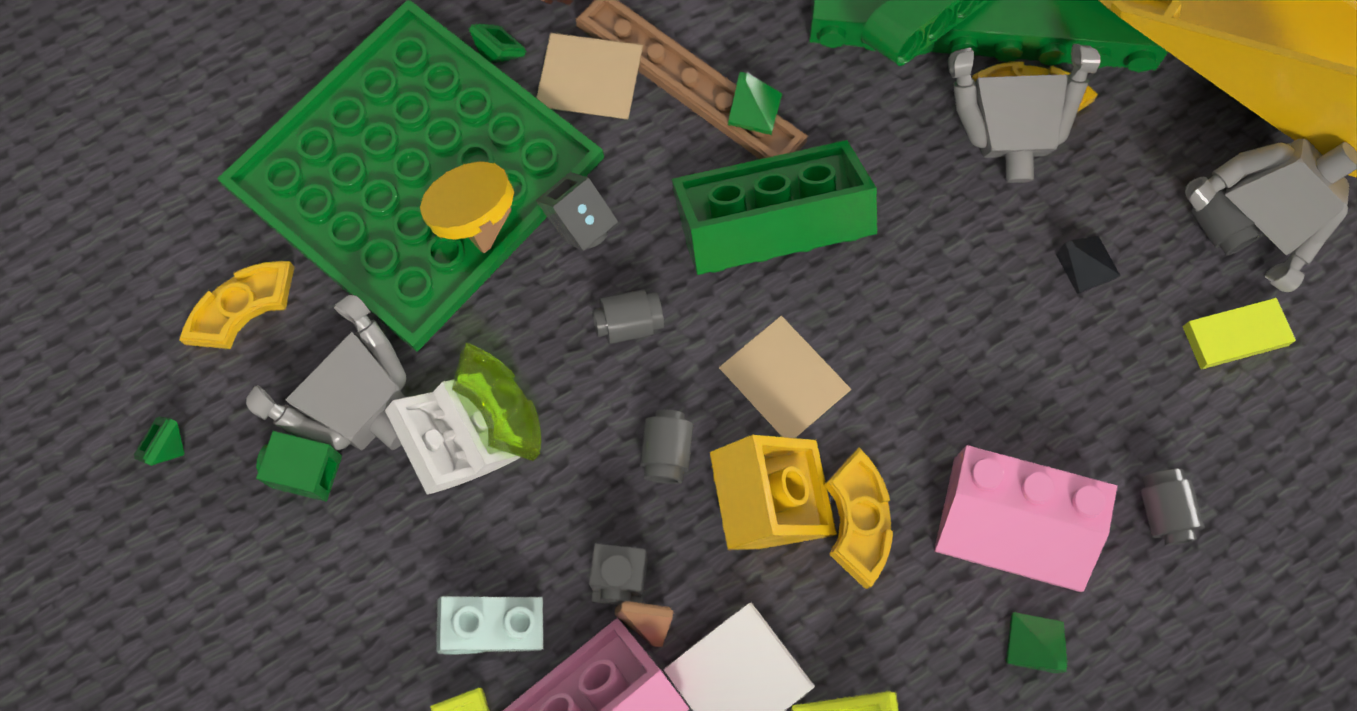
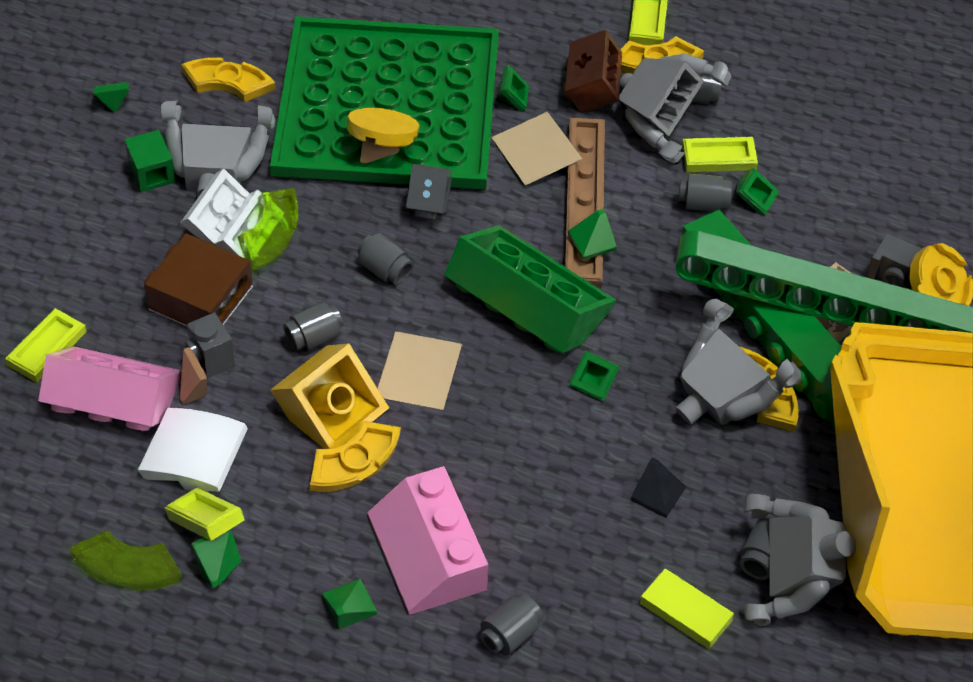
camera: 50 degrees right, 20 degrees down
(489, 624) = (123, 300): light aqua plate -> none
(520, 530) = (198, 282): none -> reddish brown piece
(915, 223) = (594, 376): none -> green slope

